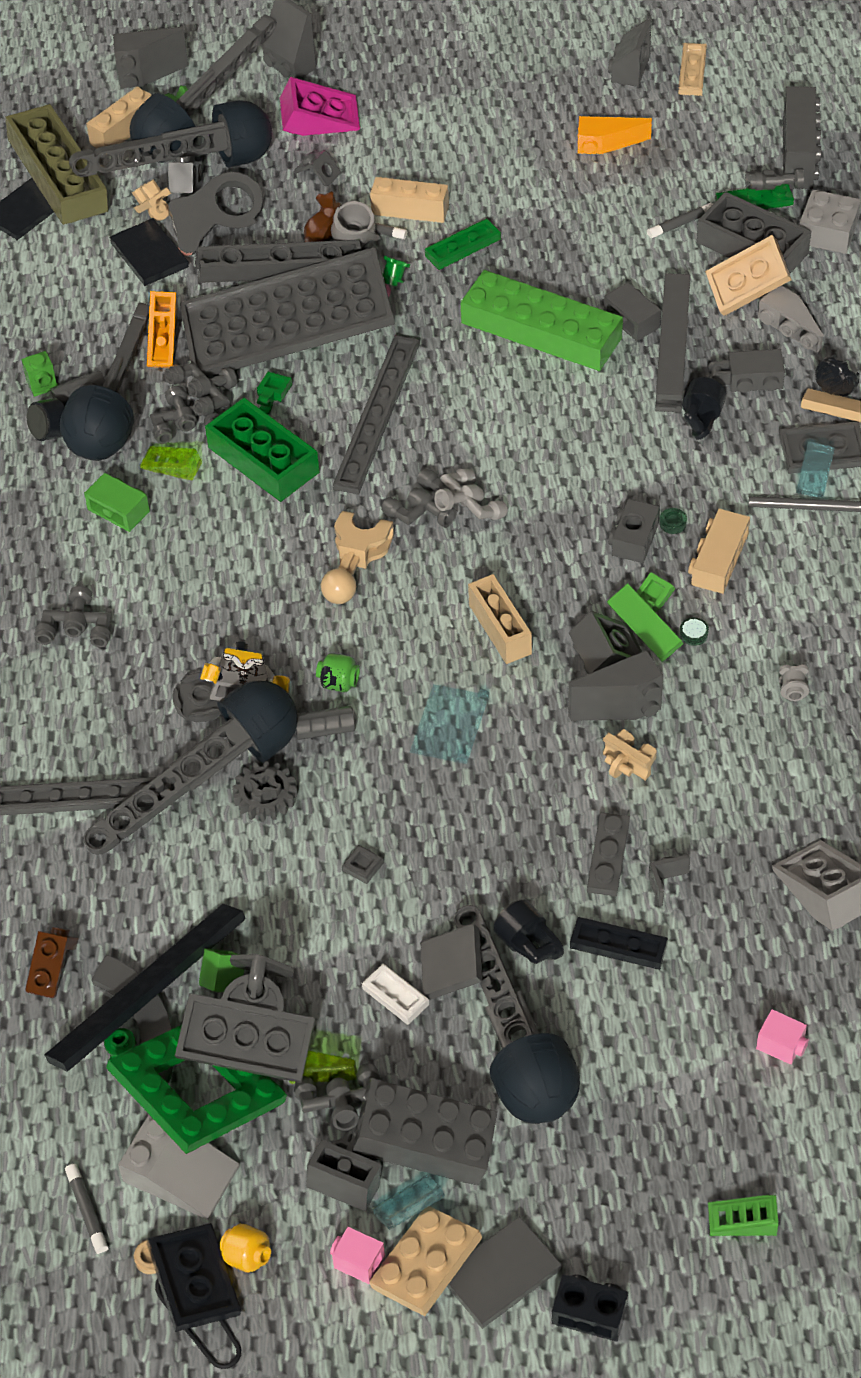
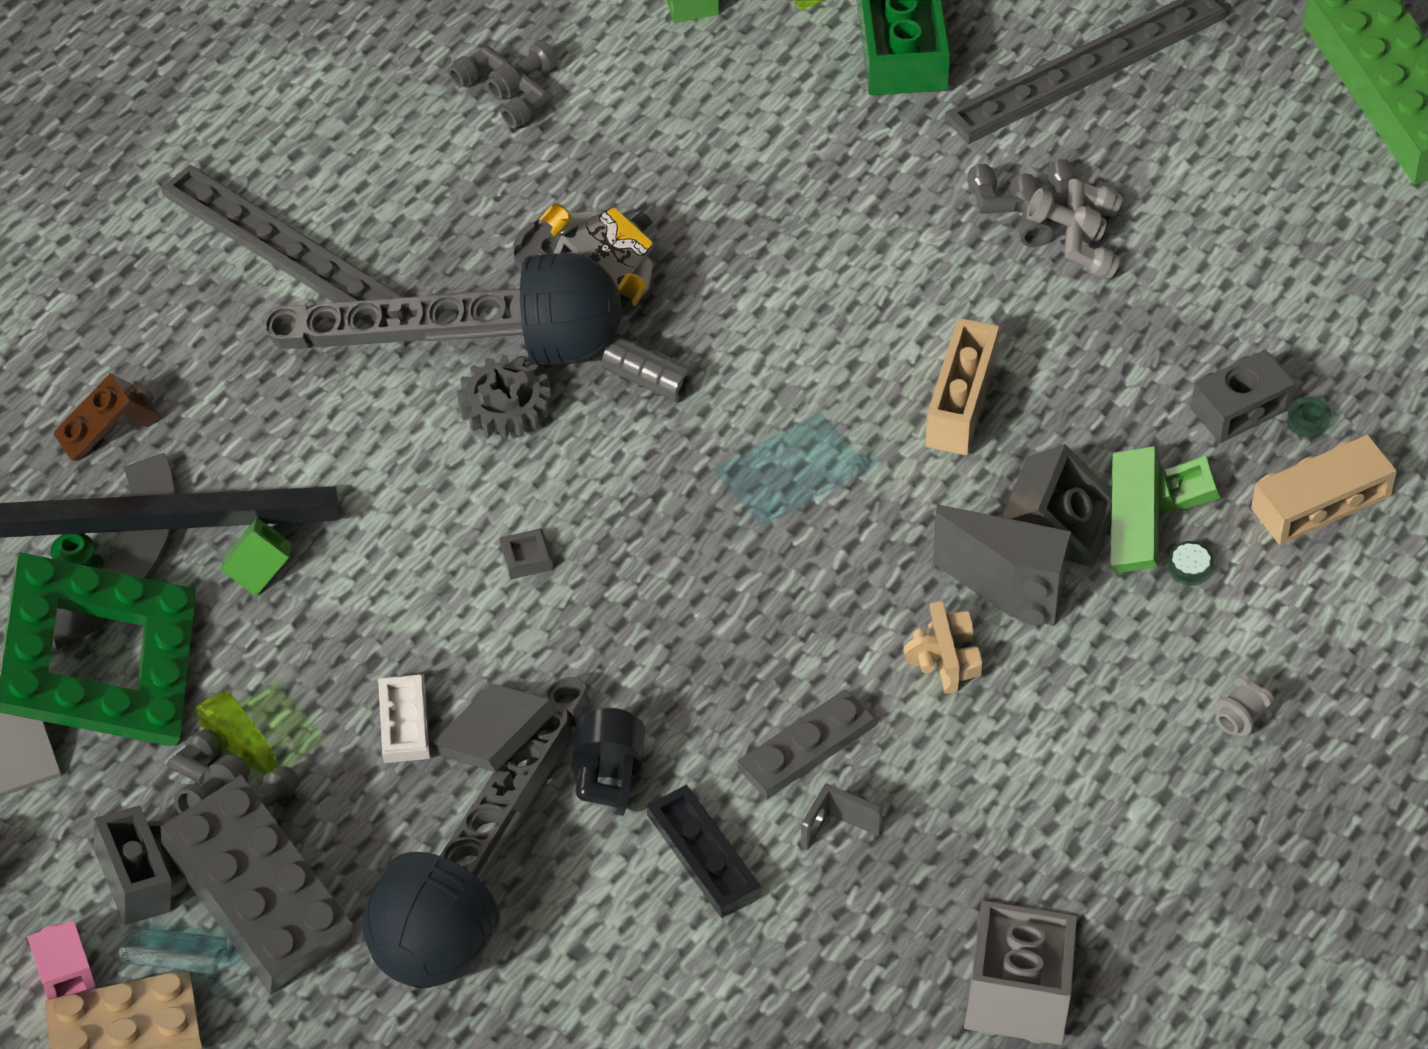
camera: 40 degrees right, 0 degrees up
(248, 1031) = (191, 622): dark grey plate -> none
(338, 672) = (722, 324): bright green head -> none
(356, 549) = (890, 199): tan piece -> none

